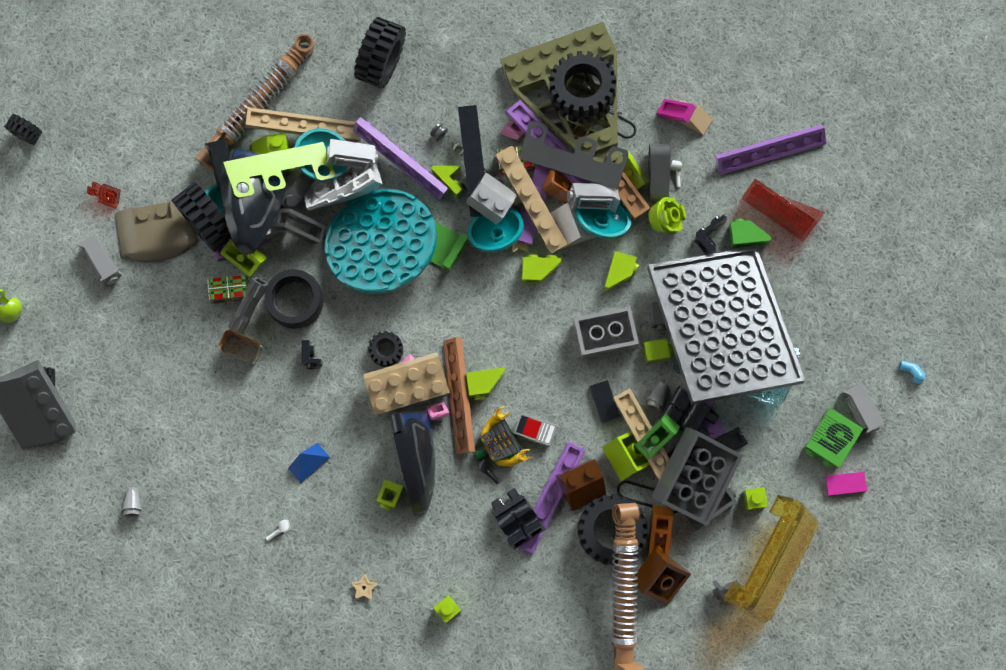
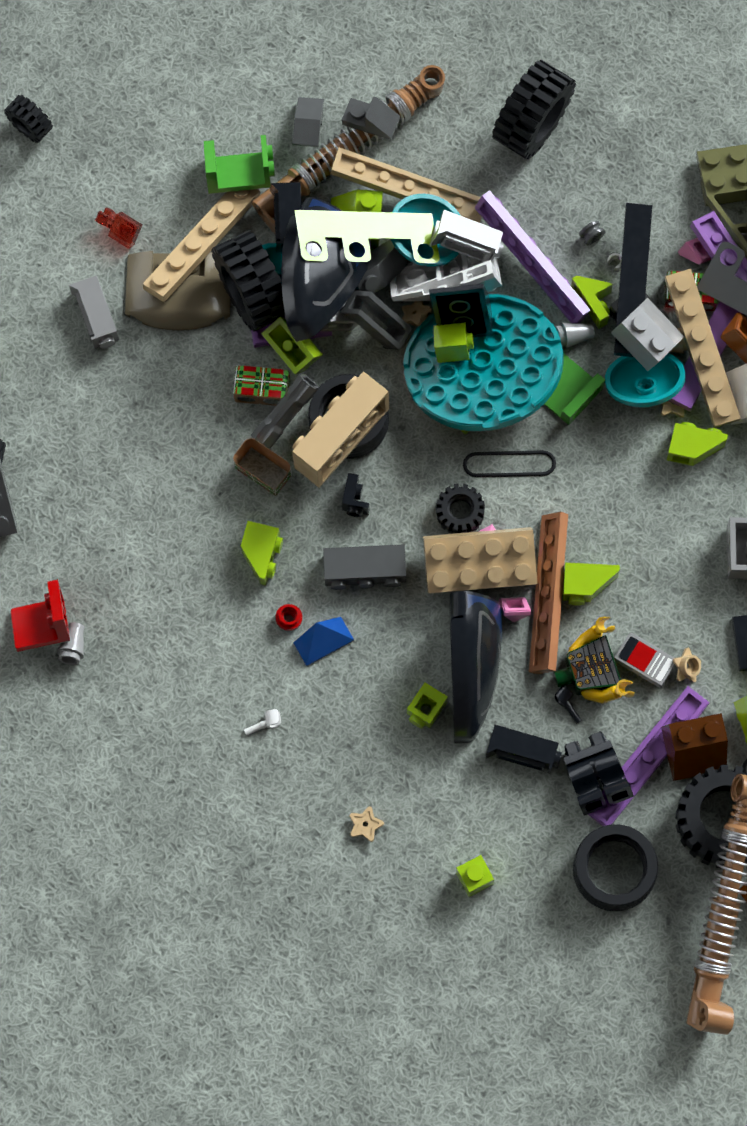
camera: 15 degrees right, 5 degrees down
(106, 492) = (41, 622): none -> red bracket
(164, 193) = (199, 243): none -> tan plate
(180, 137) = (238, 171): none -> bright green panel
(223, 91) = (308, 122): none -> dark grey slope
(250, 406) = (259, 548): none -> lime slope
(266, 81) = (371, 118): none -> dark grey slope
(276, 447) = (288, 609): none -> red plate
(288, 312) = (340, 428): none -> tan brick
(326, 404) = (364, 566): none -> dark grey brick
(331, 213) = (420, 310): none -> tan plate
(355, 232) = (452, 342): none -> lime brick
(358, 209) = (463, 305): none -> black slope
(417, 315) = (509, 453): none -> black piece
(440, 206) = (574, 333): none -> light grey cone
(463, 511) = (523, 749): none -> black window
(561, 565) = (620, 834): none -> black tyre
(570, 427) = (693, 669): none -> tan plate

